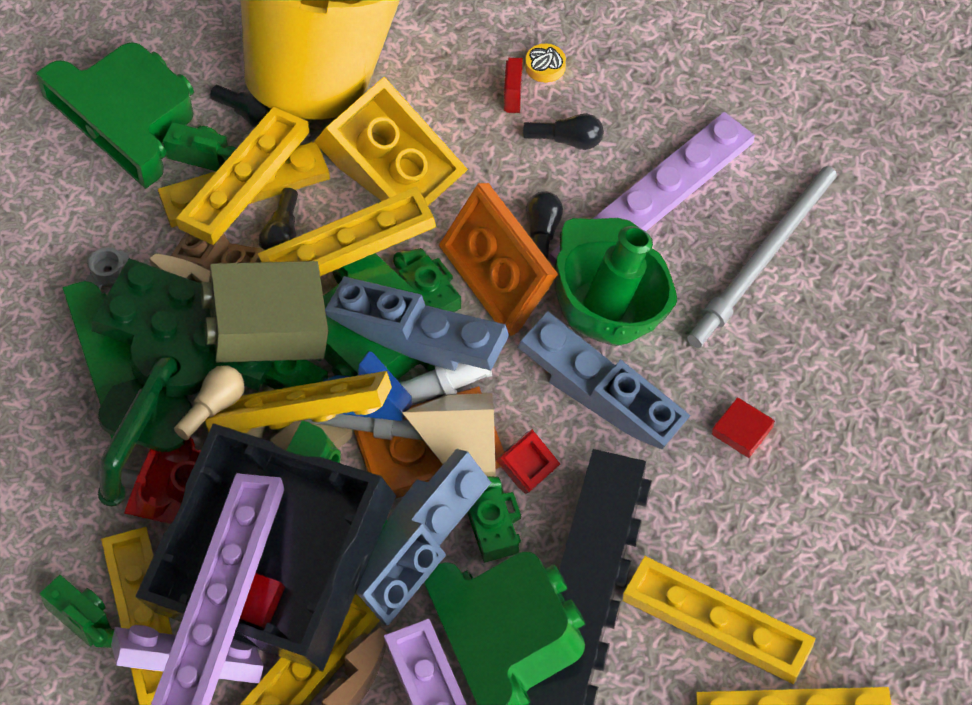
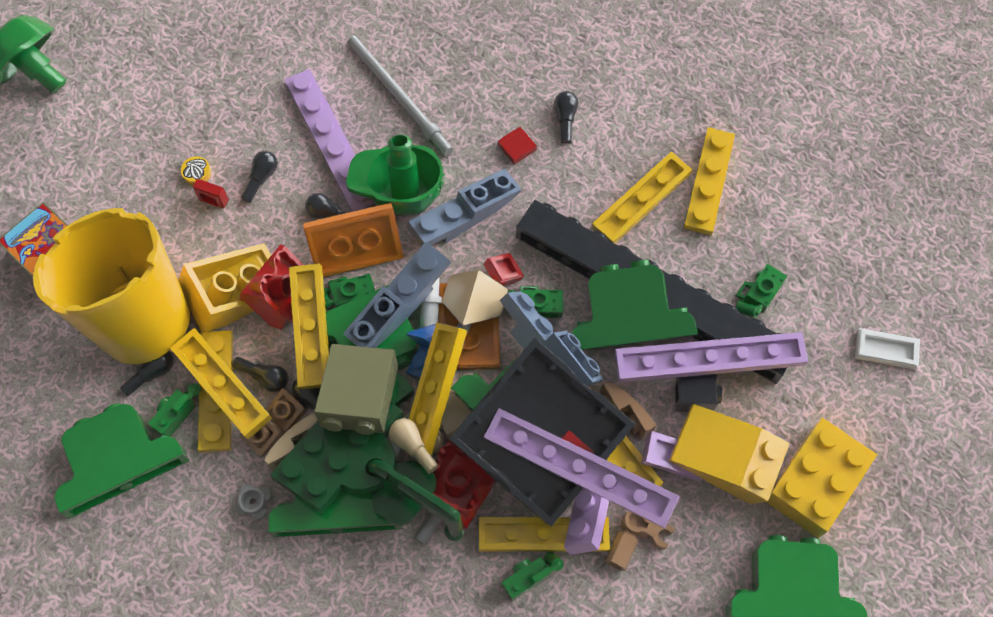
camera: 75 degrees left, 10 degrees up
(391, 175) = (270, 289): none -> red slope
(835, 474) = (566, 107): none -> black piece

